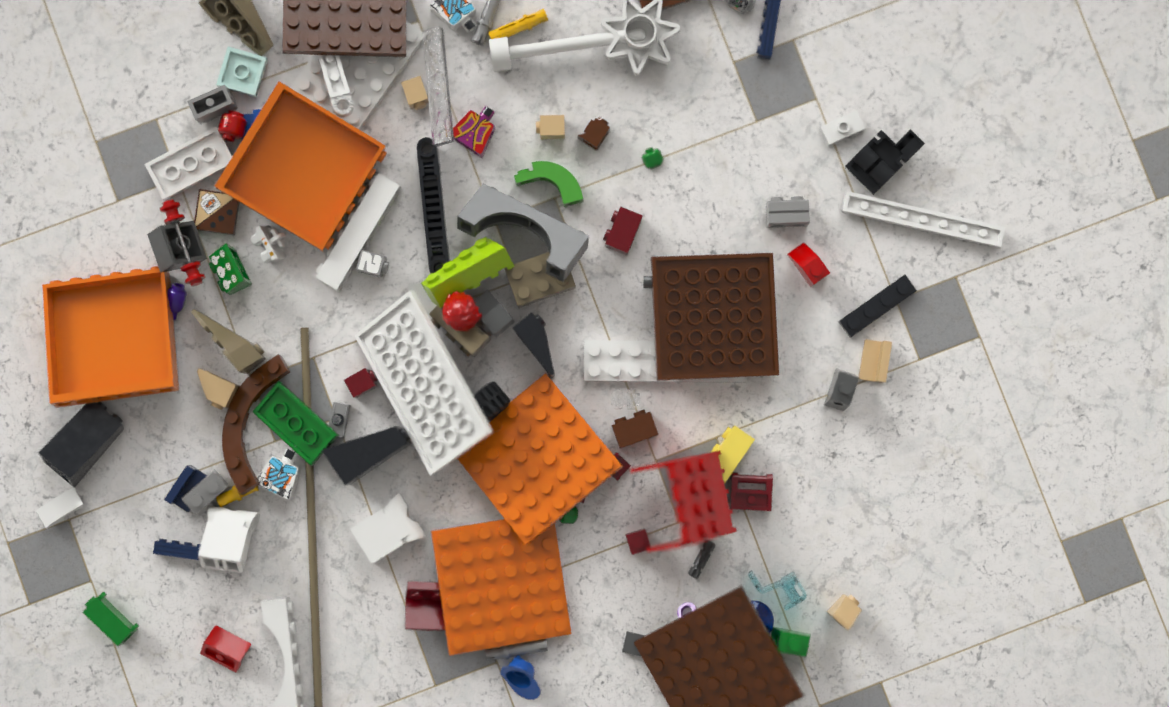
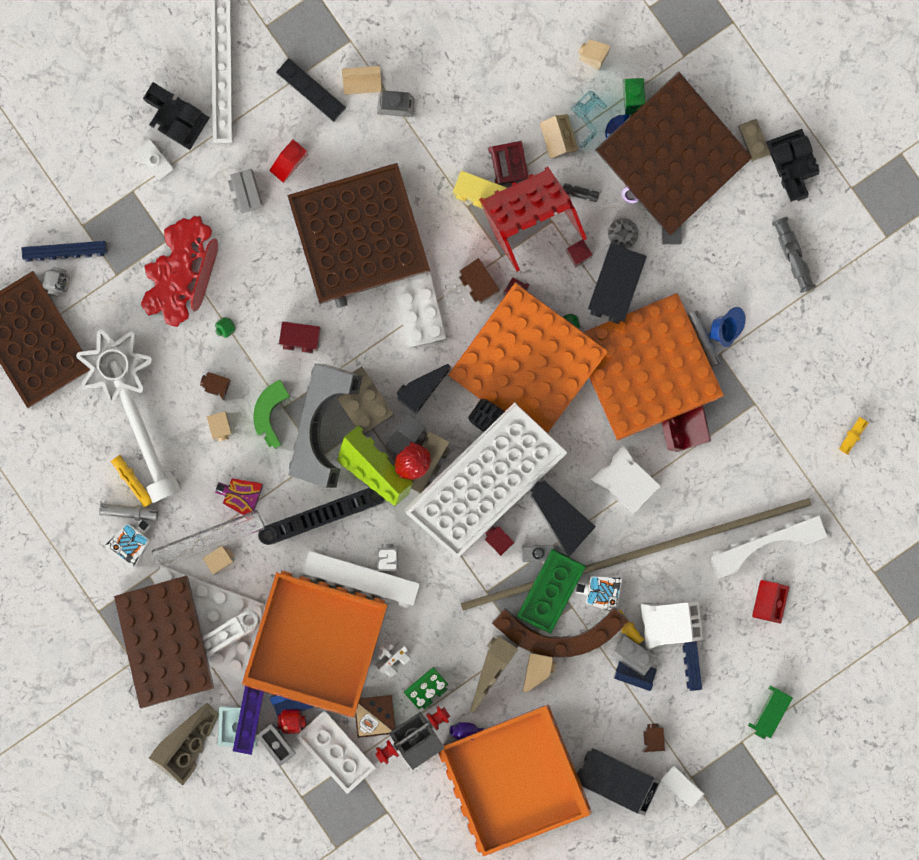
camera: 105 degrees left, 0 degrees up
(116, 490) = (654, 738): none -> reddish brown window
(240, 80) = (248, 721): none -> dark purple plate
(595, 572) = (616, 283): none -> black slope
(642, 585) = (630, 238): none -> light grey gear
(720, 120) = (175, 273): none -> red plant
(767, 551) = (558, 135): none -> tan panel

